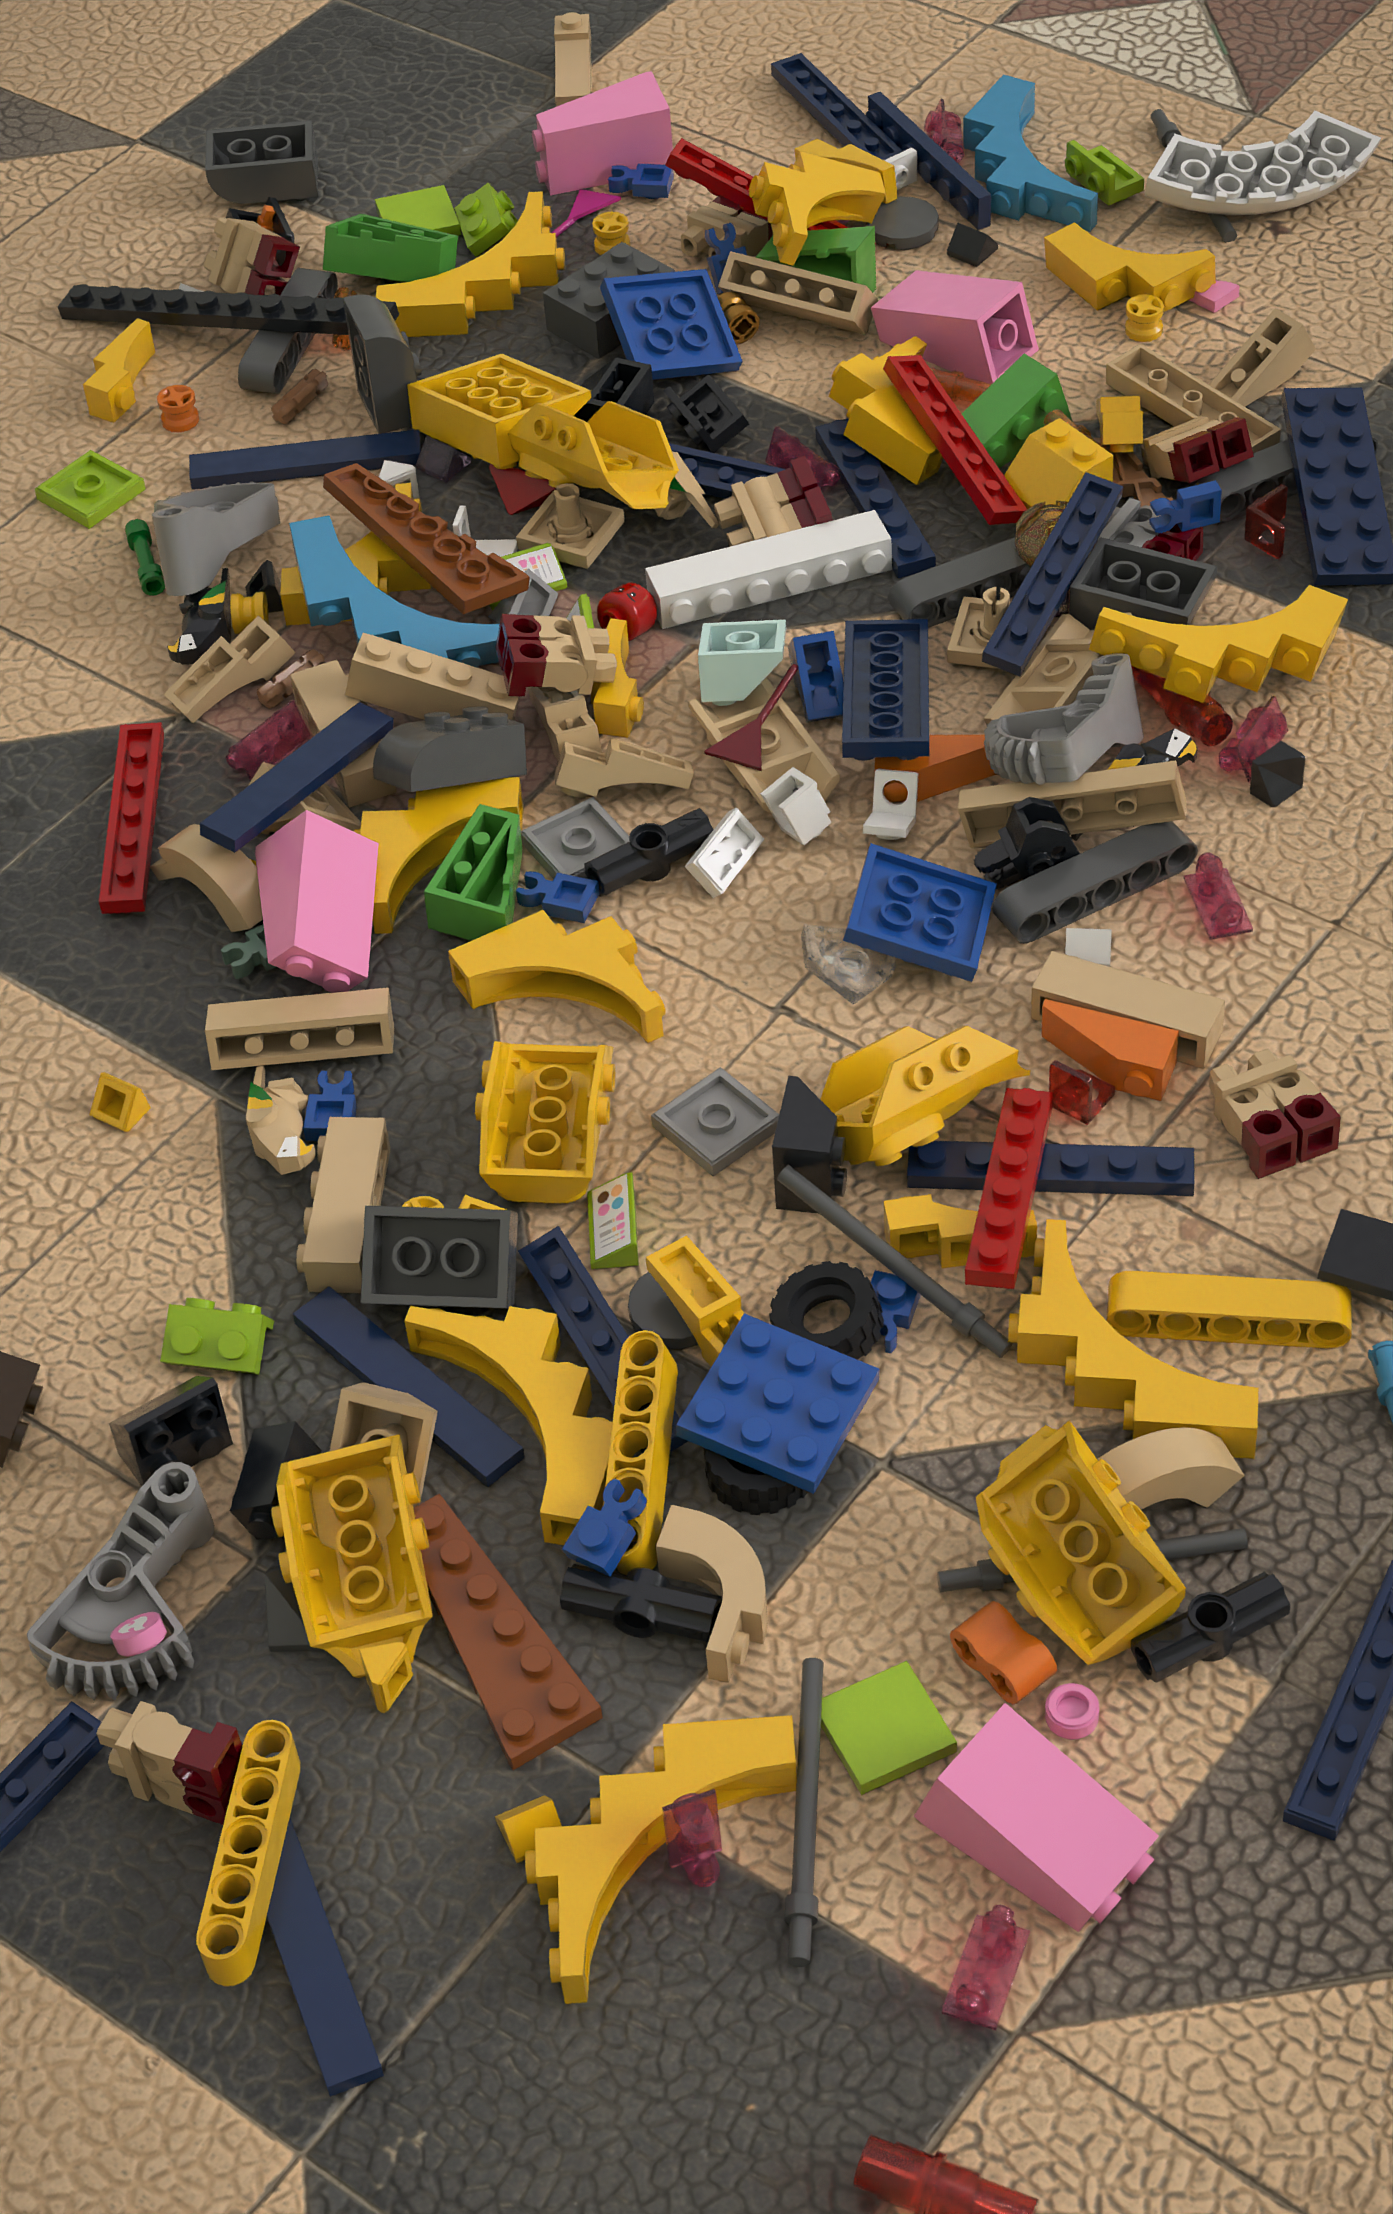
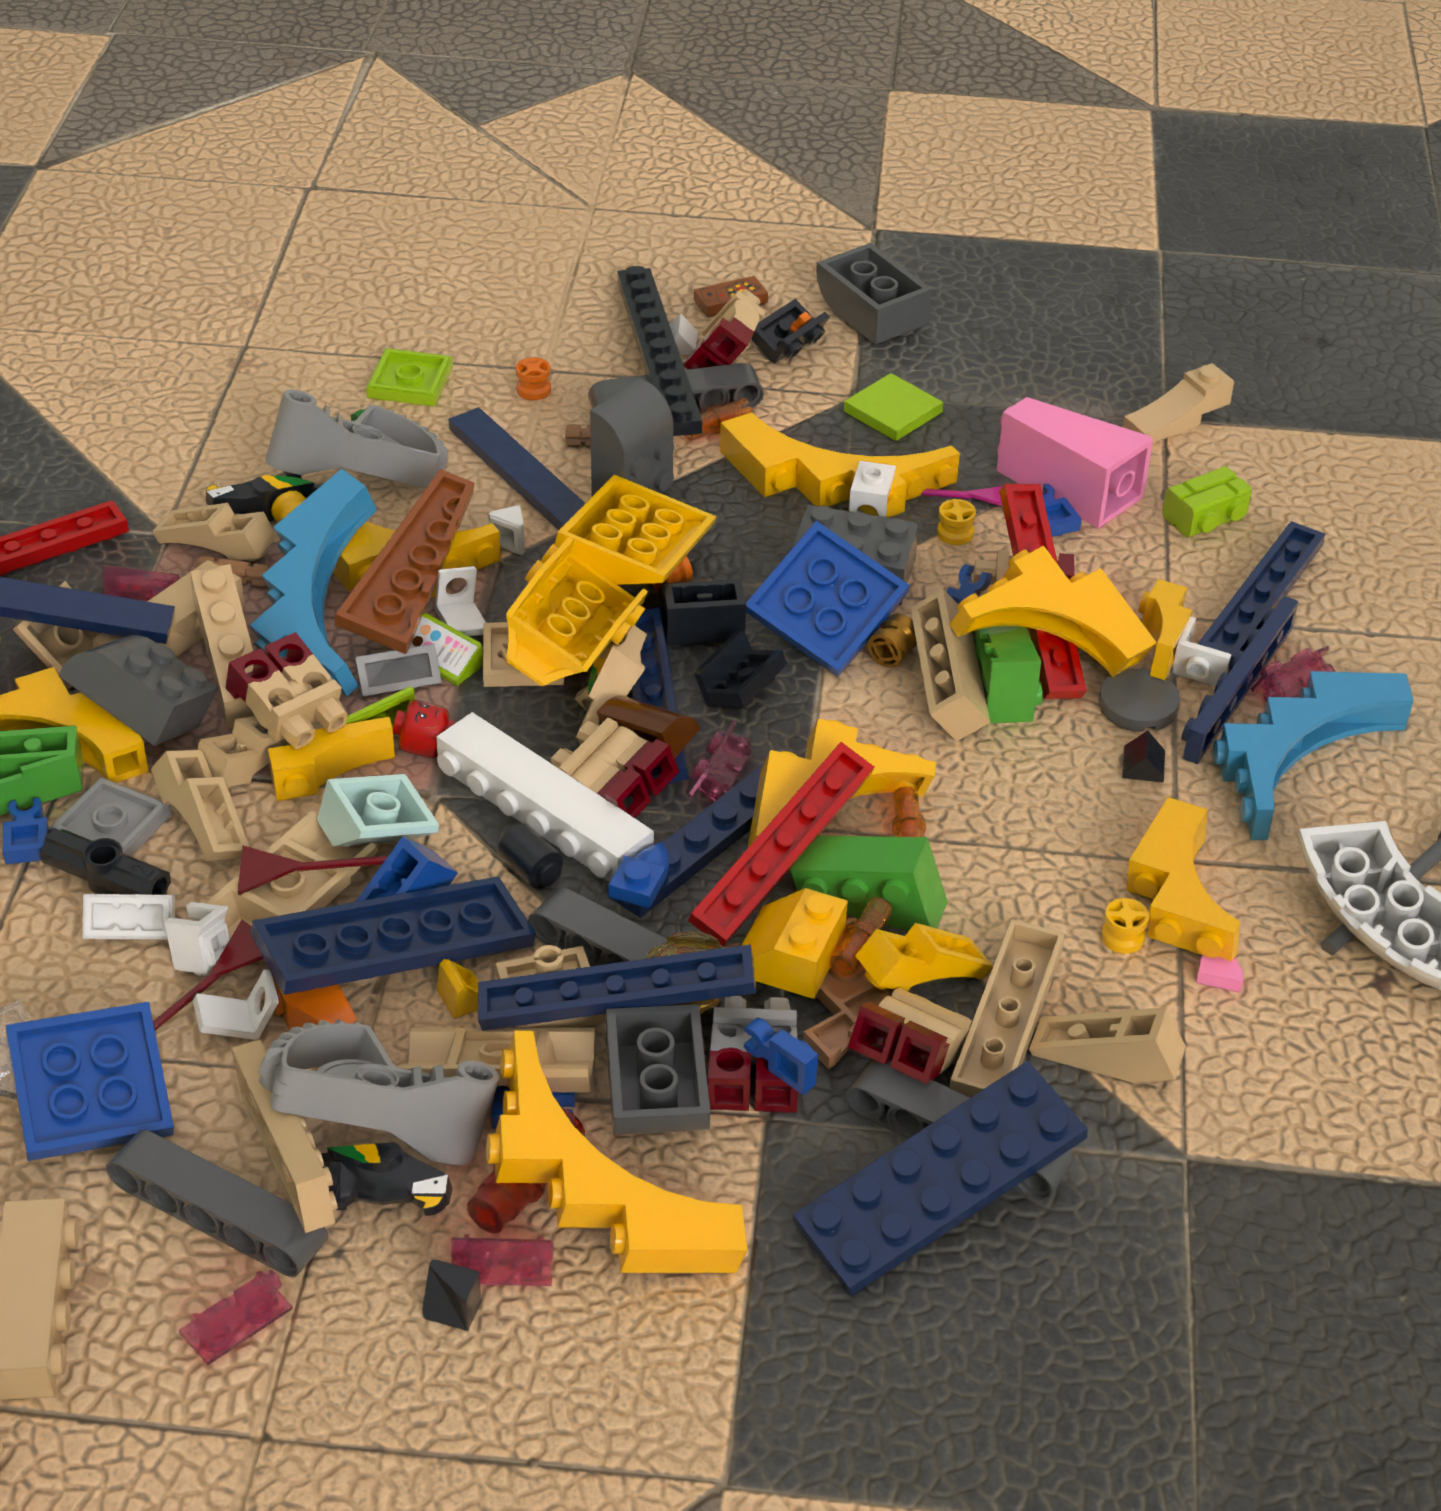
camera: 55 degrees right, 5 degrees down
(110, 388) = (555, 330): yellow slope -> none
(161, 254) = (714, 297): none -> dark orange tile
(387, 249) = (803, 396): bright green wedge -> none
(485, 218) = (918, 437): lime bracket -> none
(546, 253) = (871, 486): none -> white bracket
(708, 96) = (1206, 502): none -> lime brick
(756, 462) = (650, 722): none -> reddish brown brick
(833, 786) = (238, 953): none -> dark red piece
(835, 596) = (530, 856): none -> black brick
(916, 539) = (641, 876): none -> blue plate
(951, 686) = (457, 988): none -> yellow slope
(965, 321) = (992, 793): bright pink slope -> none
(1027, 843) = (221, 1127): black hinge -> none
(1089, 944) = (124, 1234): white slope -> none
(1102, 173) = (1332, 799): lime bracket -> none
(1265, 515) = (864, 1134): clear red bracket -> none

